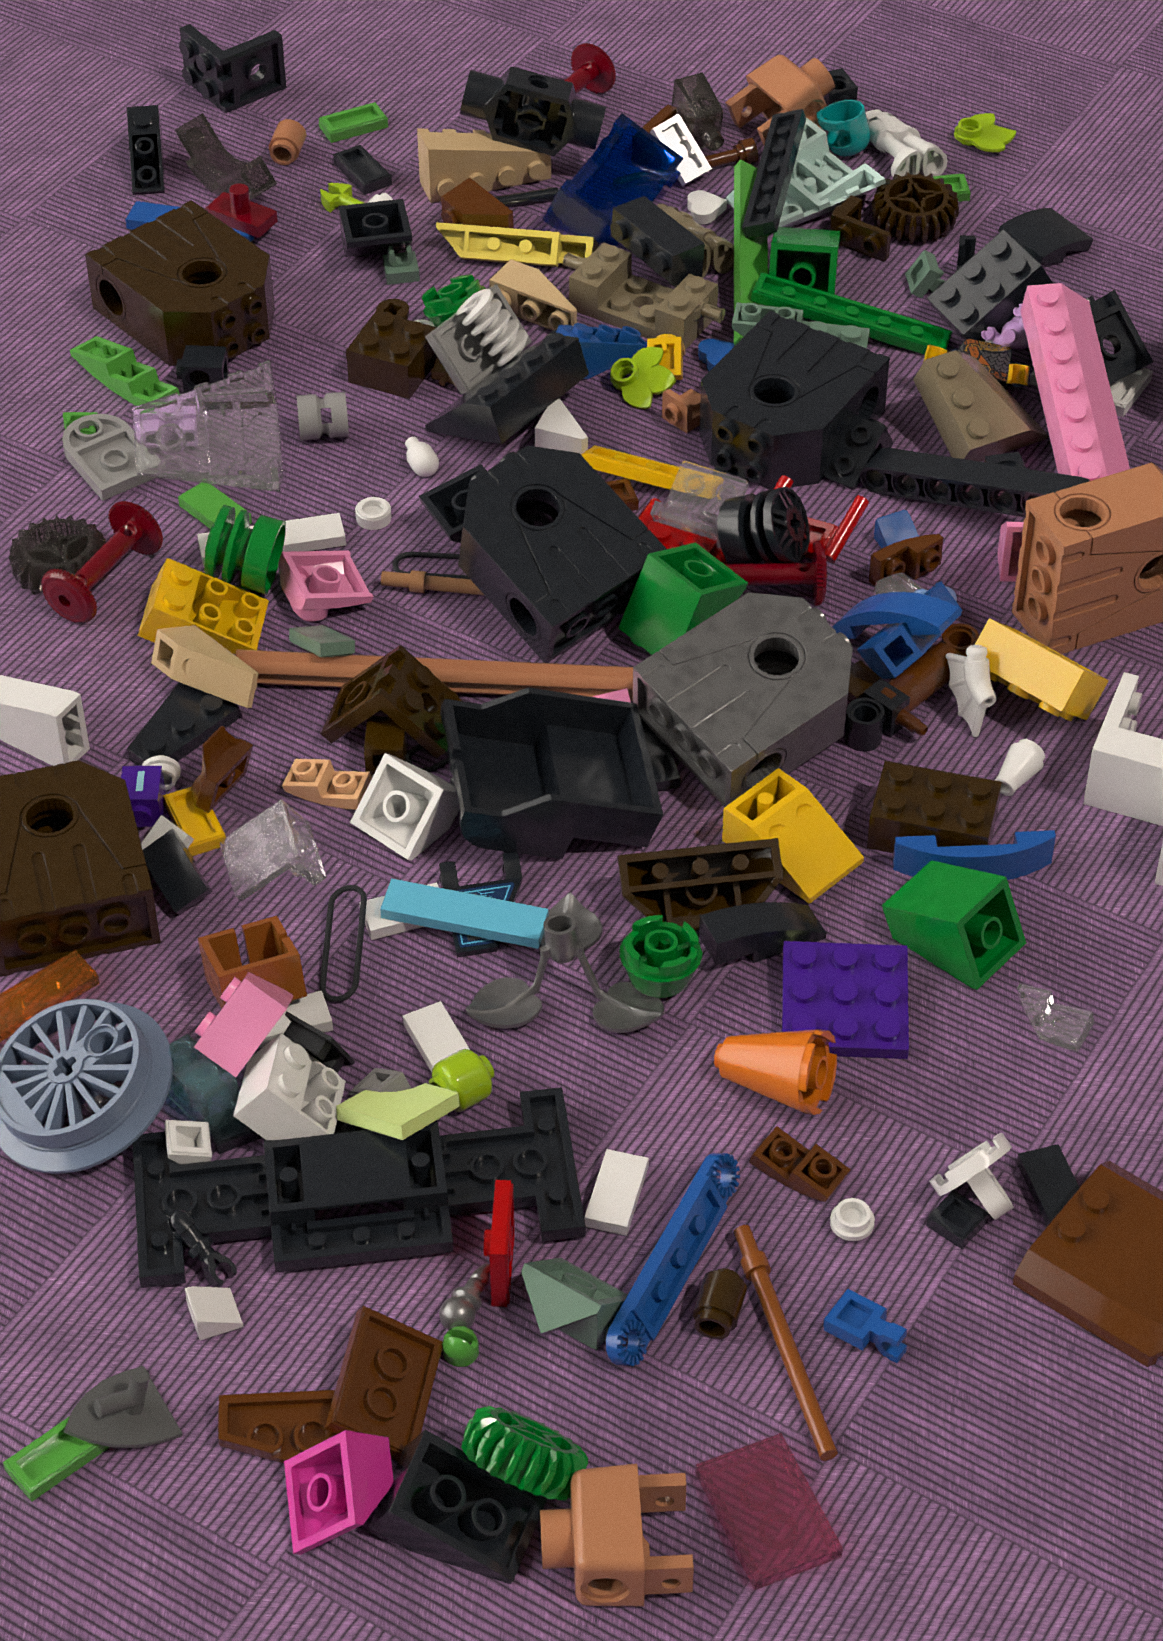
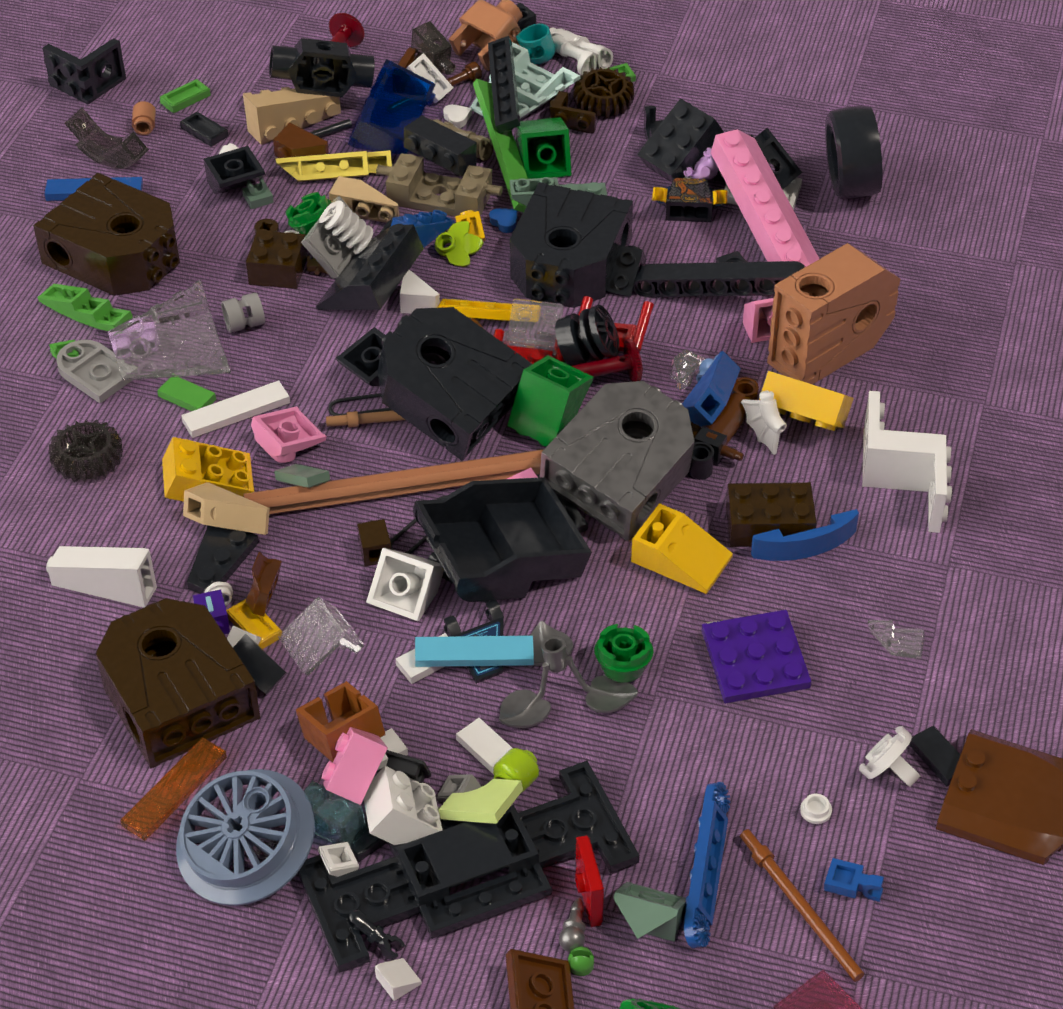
camera: 15 degrees left, 0 degrees up
(71, 594) = (107, 475): dark red hose -> none
(145, 149) = (42, 140): black slope -> none
(202, 365) = (142, 293): black brick -> none
(237, 547) = (225, 419): green wheel -> none
(242, 214) = (130, 174): dark red tile -> none
(320, 784) = (333, 578): light nougat slope -> none
(338, 195) = (194, 150): lime bar -> none
(356, 977) = (405, 683): black piece -> none
(373, 513) = (302, 376): white tile -> none
(401, 690) = (372, 498): dark brown bracket -> none
(421, 457) = (323, 329): white cylinder -> none
(616, 1192) = (649, 826): white tile -> none
(682, 409) = (495, 261): nougat bracket -> none
(700, 879) = (634, 595): dark brown wedge -> none
(719, 1303) = (749, 888): dark brown brick -> none
(757, 930) = (680, 620): black slope -> none
(781, 1066) = (731, 712): orange cone -> none
(801, 1169) = (772, 782): reddish brown slope -> none
(837, 310) = (581, 173): green tile -> none
(894, 528) = (673, 323): blue slope -> none
(910, 556) = (687, 337): reddish brown slope -> none
(921, 612) = (720, 375): blue slope -> none
(924, 274) = (626, 138): sand green tile -> none
(957, 920) = (812, 584): green slope -> none
(957, 1219) = (884, 792): black tile -> none
(973, 408) = (695, 226): dark tan wedge -> none
(983, 133) = (628, 32): lime plate -> none
(1020, 765) = (814, 467): white cone -> none
(1047, 235) = (698, 94): black slope -> none

